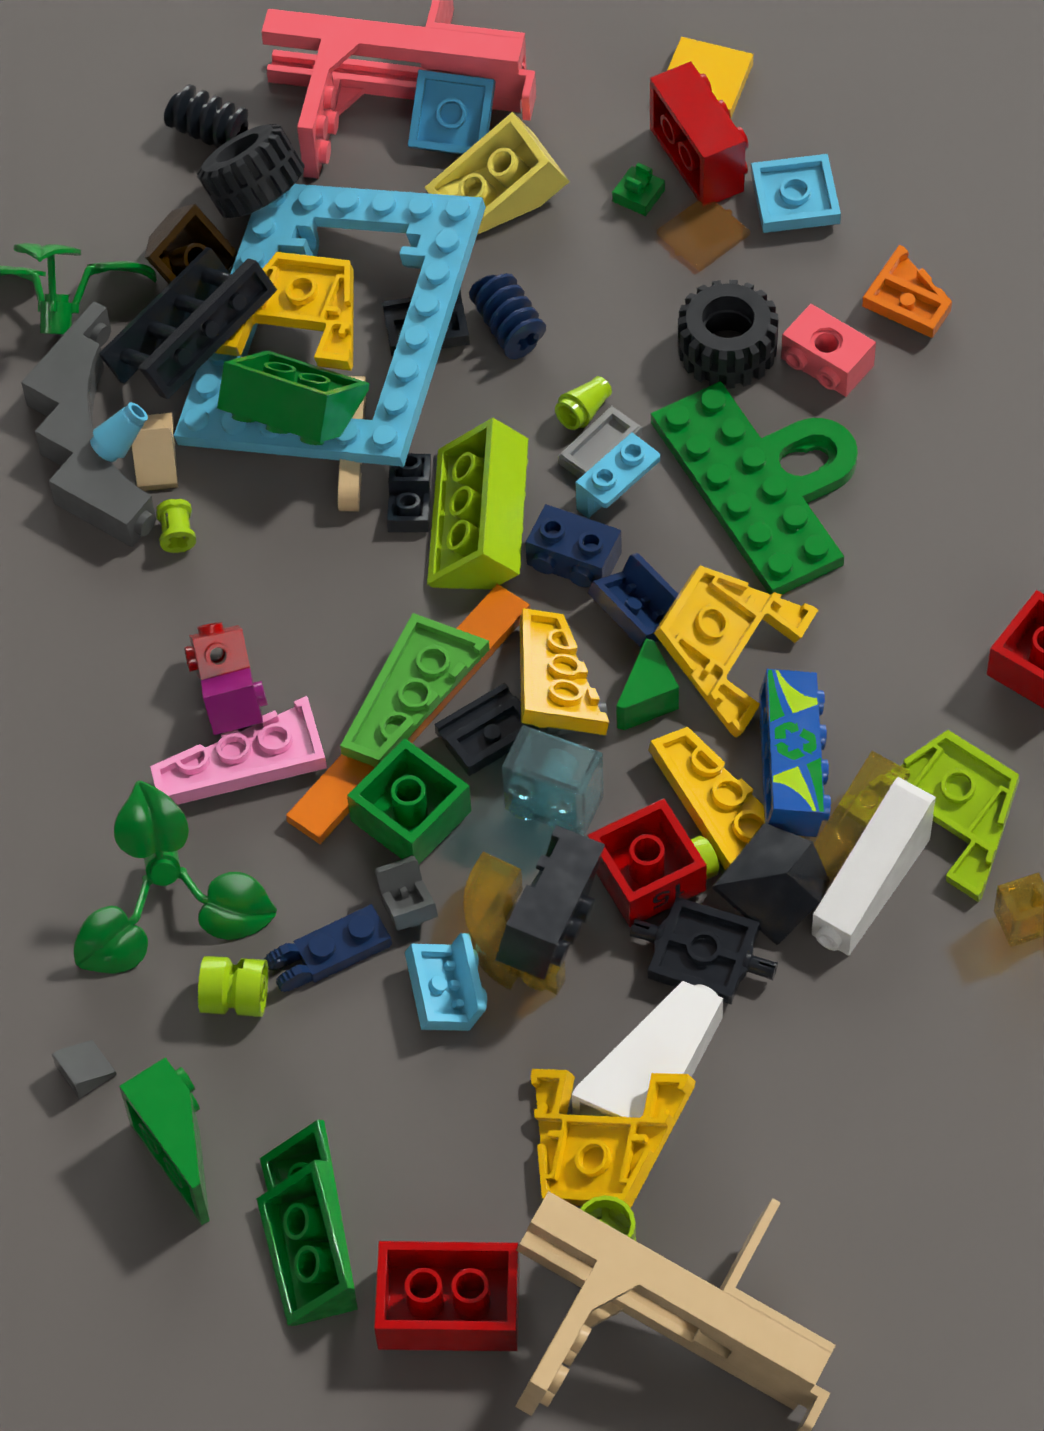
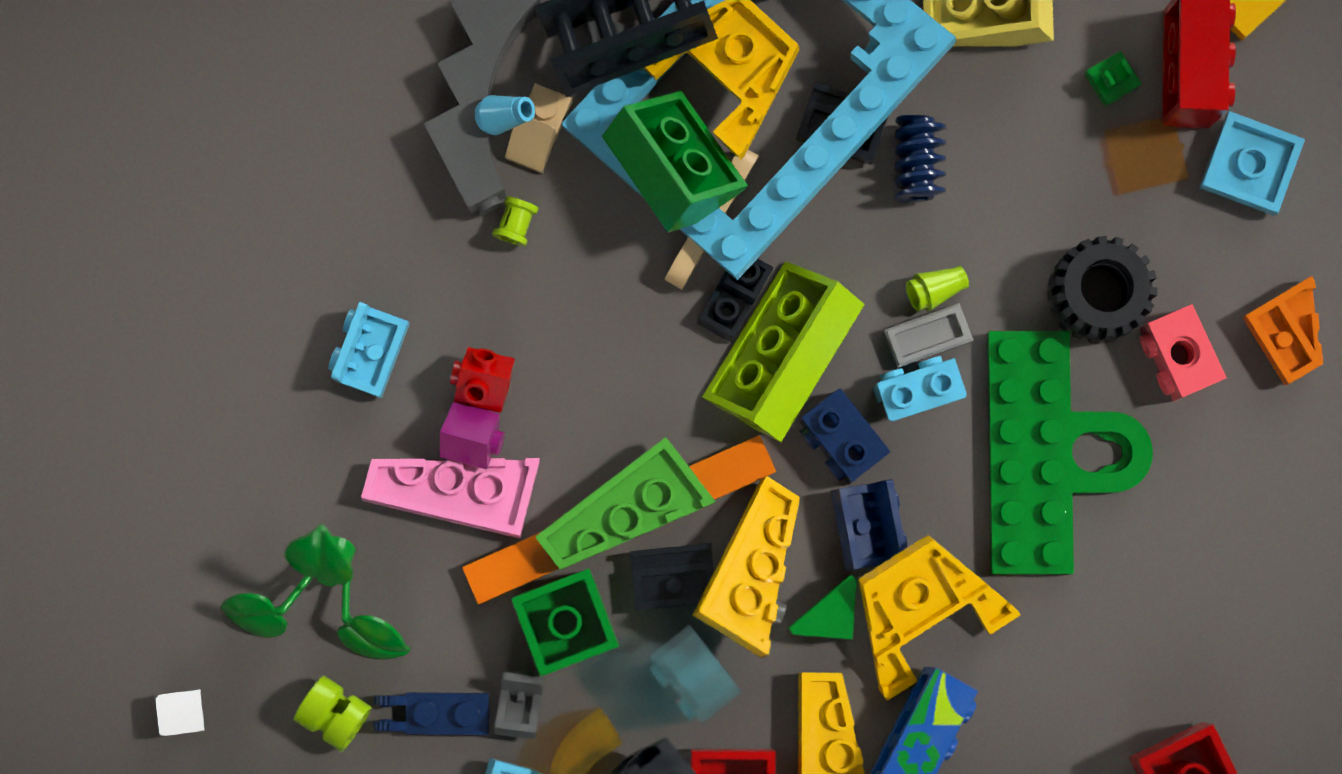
camera: 25 degrees right, 25 degrees up
(98, 684) = (368, 349): none -> medium azure bracket

